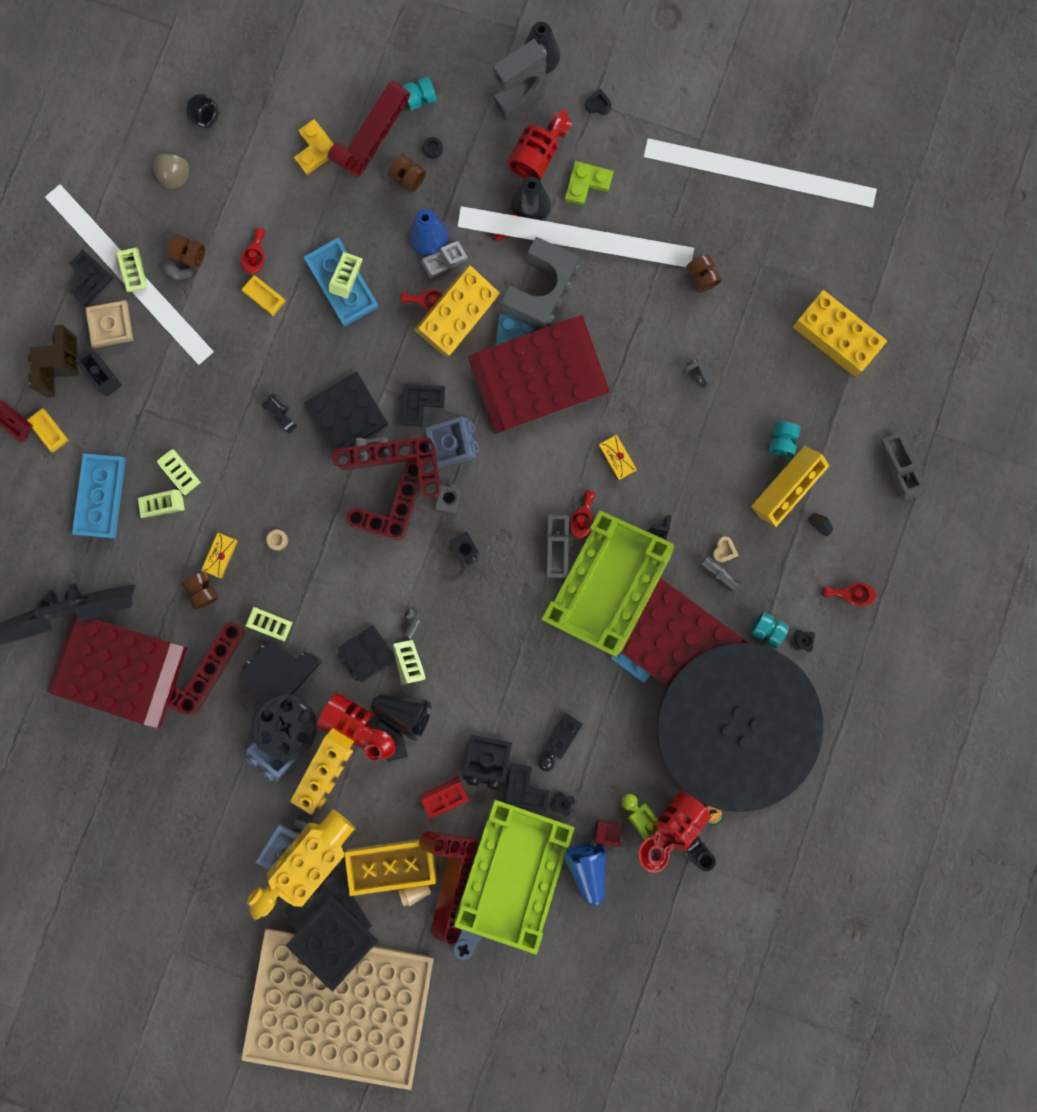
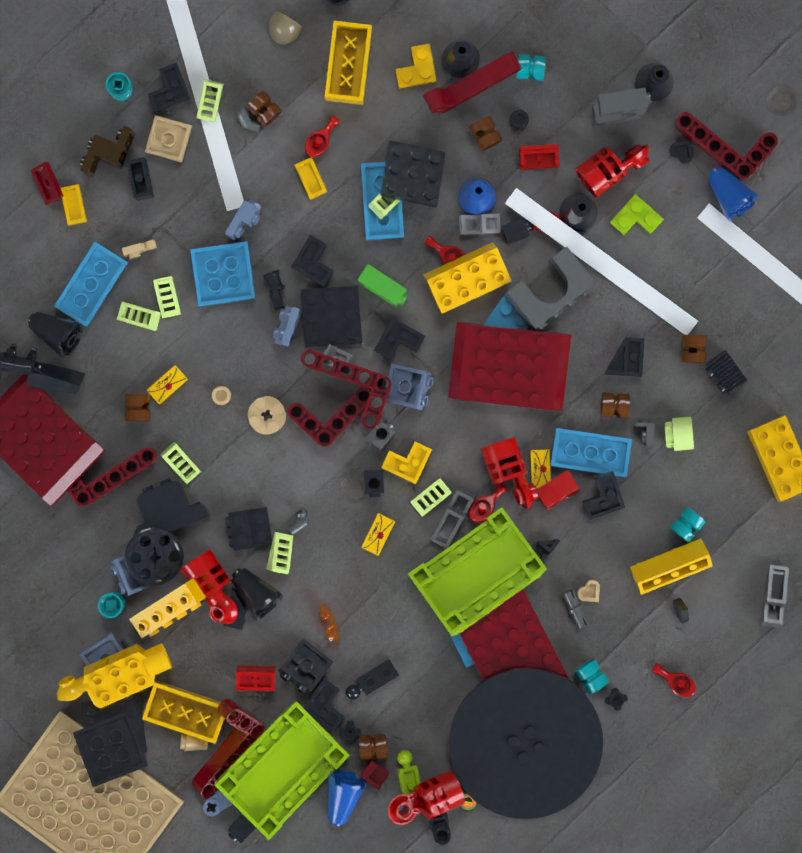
camera: 30 degrees right, 5 degrees up
(37, 297) = (119, 86): none -> teal wheel
(86, 557) = (56, 332): none -> black cone
(128, 440) = (134, 250): none -> tan plate
(215, 358) = (246, 215): none -> sand blue plate
(222, 424) = (223, 274): none -> dark azure plate
(245, 170) = (348, 62): none -> yellow brick
(266, 796) = (111, 604): none -> teal wheel
(299, 374) = (308, 263): none -> black plate
(308, 440) = (289, 321): none -> sand blue plate
(320, 530) = (276, 409): none -> tan plate
(347, 114) = (460, 58): none -> black cone
(357, 241) = (412, 174): none -> black plate
(380, 358) = (383, 286): none -> bright green window
(468, 170) = (539, 157): none -> red hinge
(481, 248) = (516, 231): none -> black brick
(492, 518) = (412, 466): none -> yellow plate
(494, 597) = (378, 534): none -> yellow tile
(495, 710) = (332, 628): none -> clear orange slope
(503, 957) = (240, 829): none -> black brick
(528, 517) = (435, 502): none -> yellowish green slope
(590, 470) = (512, 469): none -> red cylinder
(593, 807) = (373, 747): none -> reddish brown wheel
(635, 79) = (724, 149): none -> dark red beam
(644, 468) = (557, 490): none -> red hinge
(647, 314) = (628, 358): none -> black wing
(657, 417) = (591, 452): none -> dark azure plate
(658, 361) = (615, 405): none -> reddish brown wheel
(664, 115) = (731, 193): none -> blue cone
(697, 453) = (608, 500): none -> black plate
(732, 357) = (679, 434): none -> yellowish green piece
(745, 281) = (725, 372): none -> black brick

